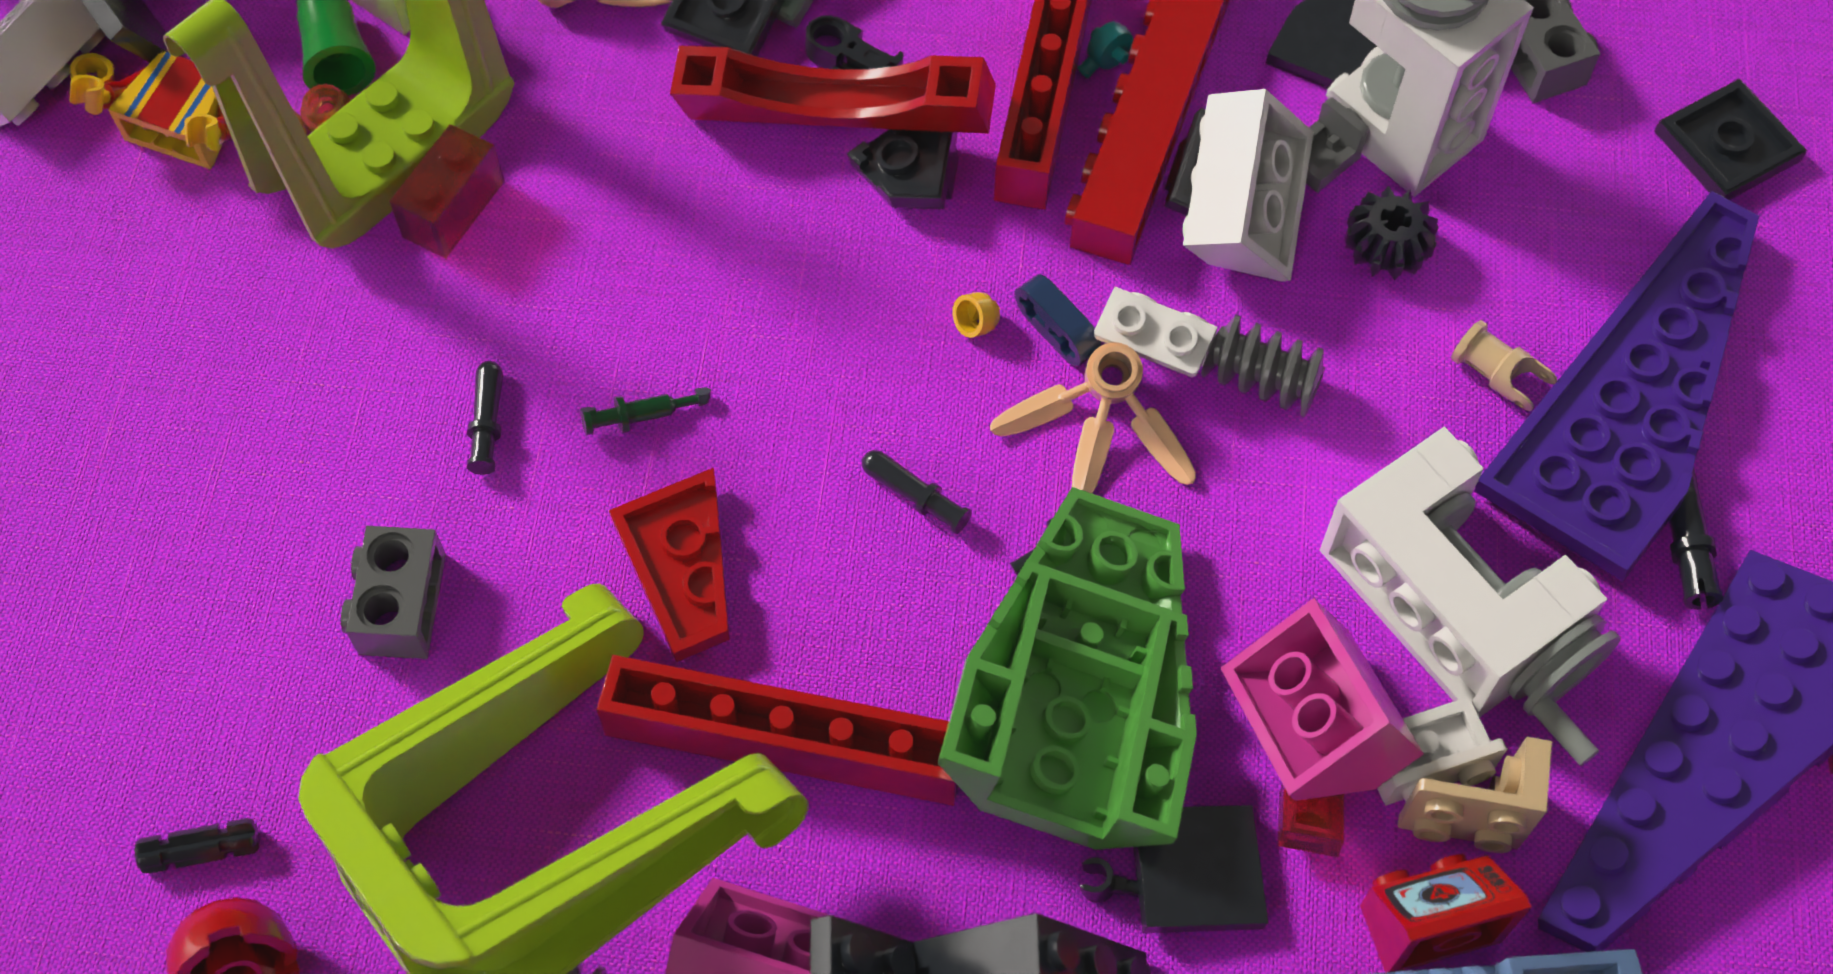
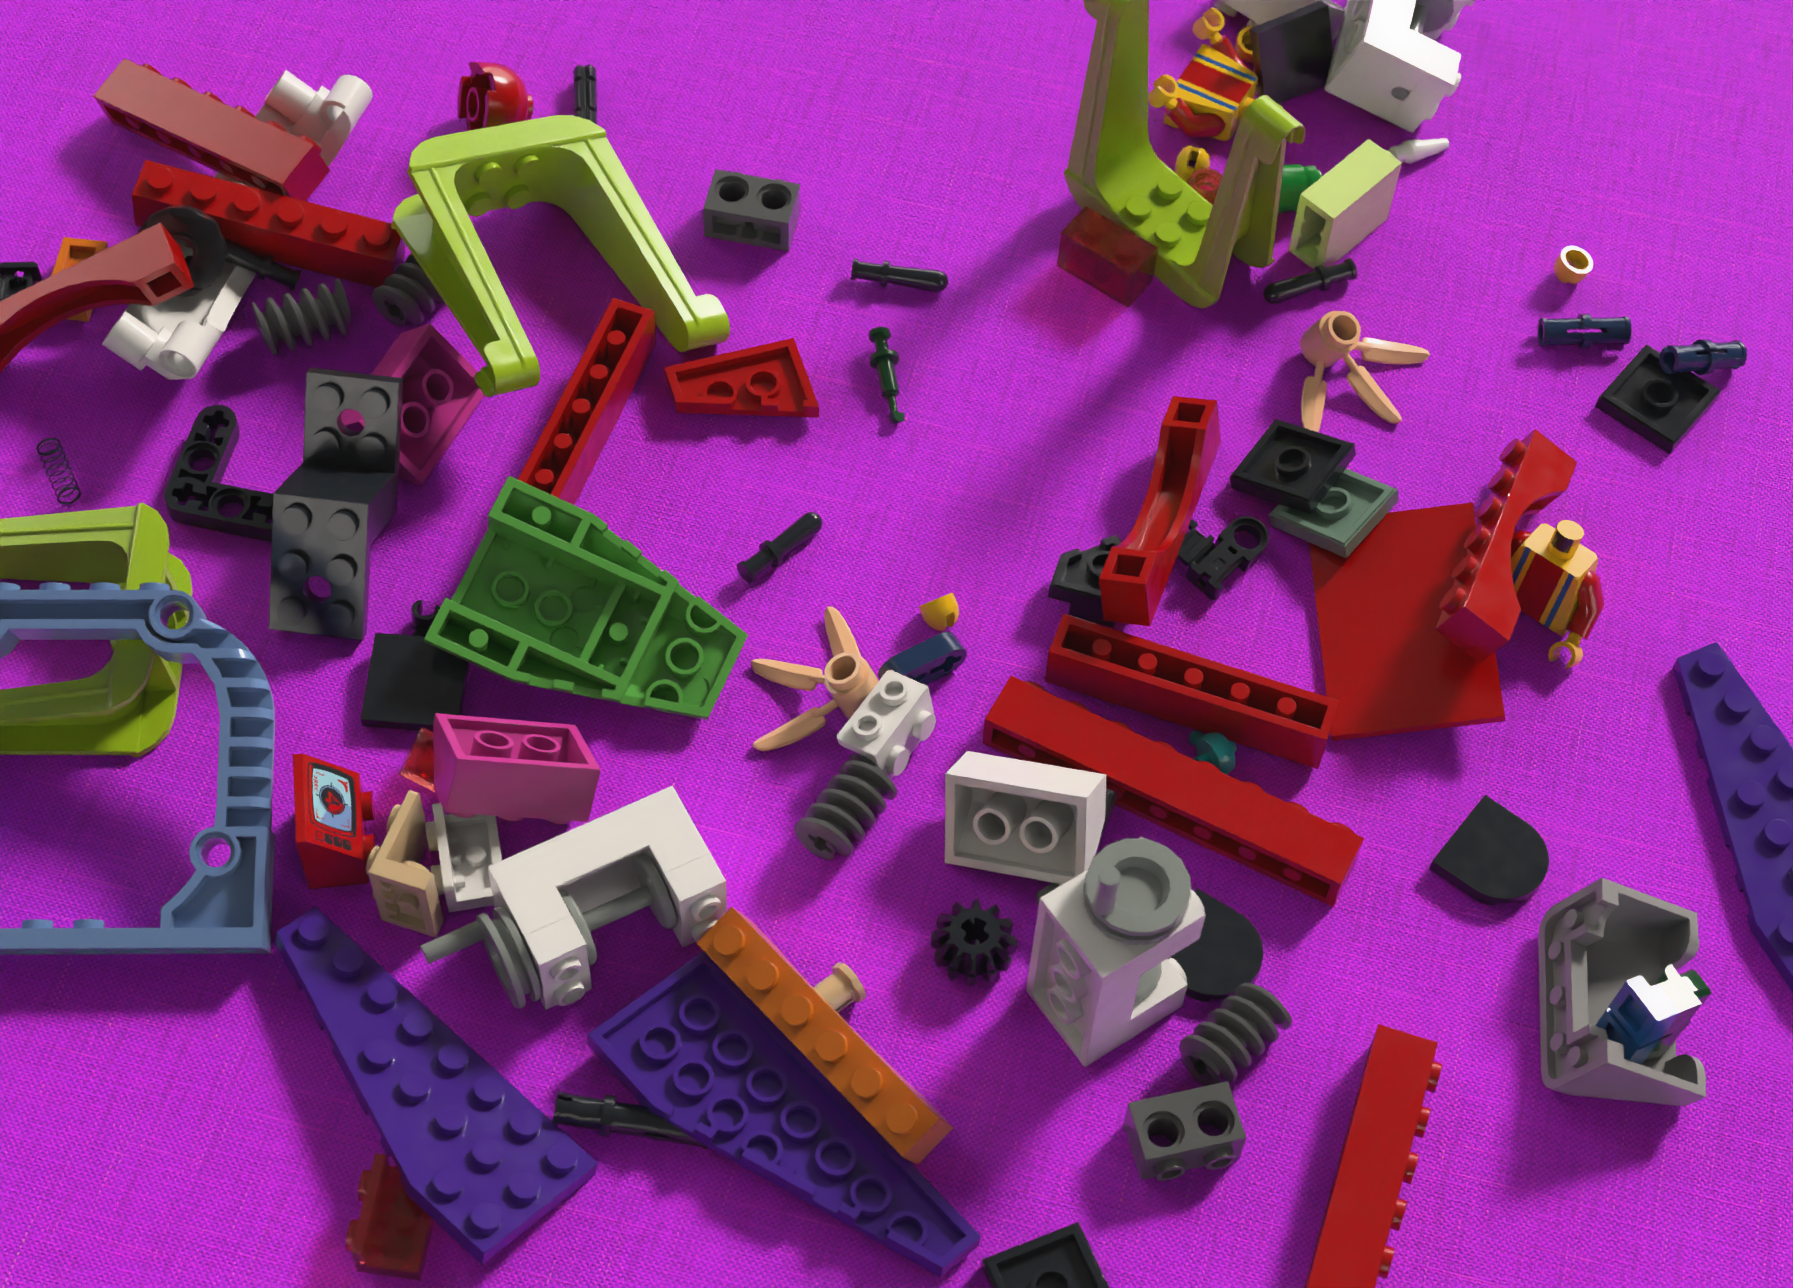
camera: 95 degrees right, 5 degrees down
(1593, 298) = (824, 1036): none -> orange arch

